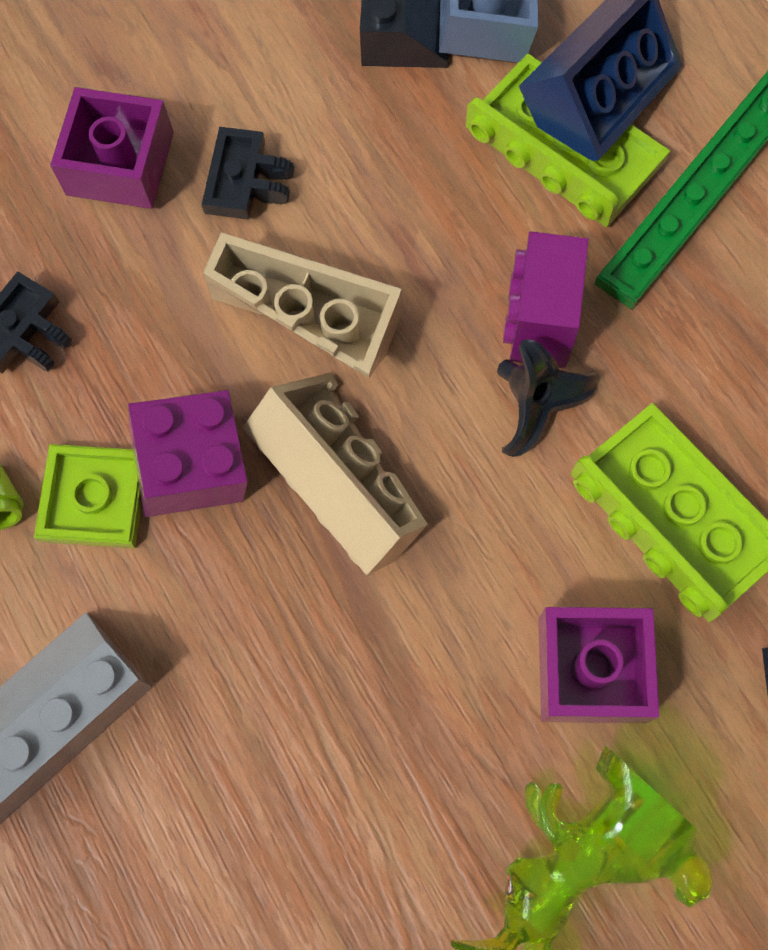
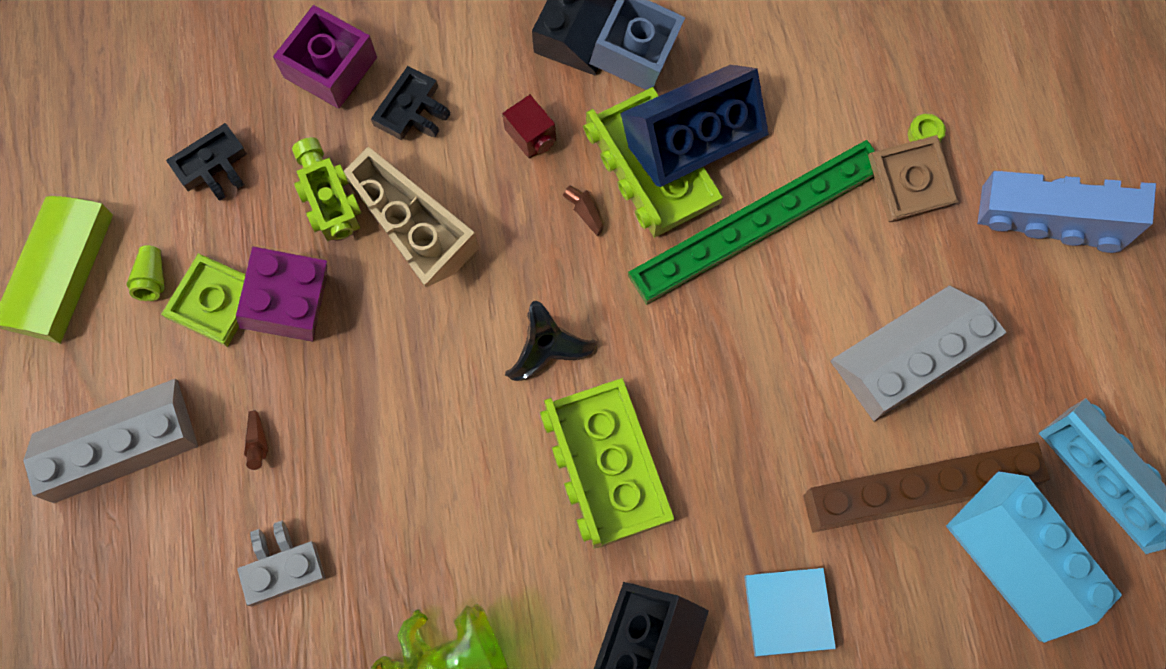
camera: 20 degrees right, 0 degrees up
(198, 314) = (331, 208): none -> lime brick
(226, 653) = (255, 443): none -> copper bar
(331, 805) = (281, 572): none -> light grey hinge
(336, 470) = (380, 342): tan wedge -> none
(401, 148) = (529, 126): none -> dark red brick
(507, 217) = (585, 207): none -> copper bar
(546, 294) = (576, 275): magenta brick -> none
(598, 665) = (494, 546): magenta brick -> none

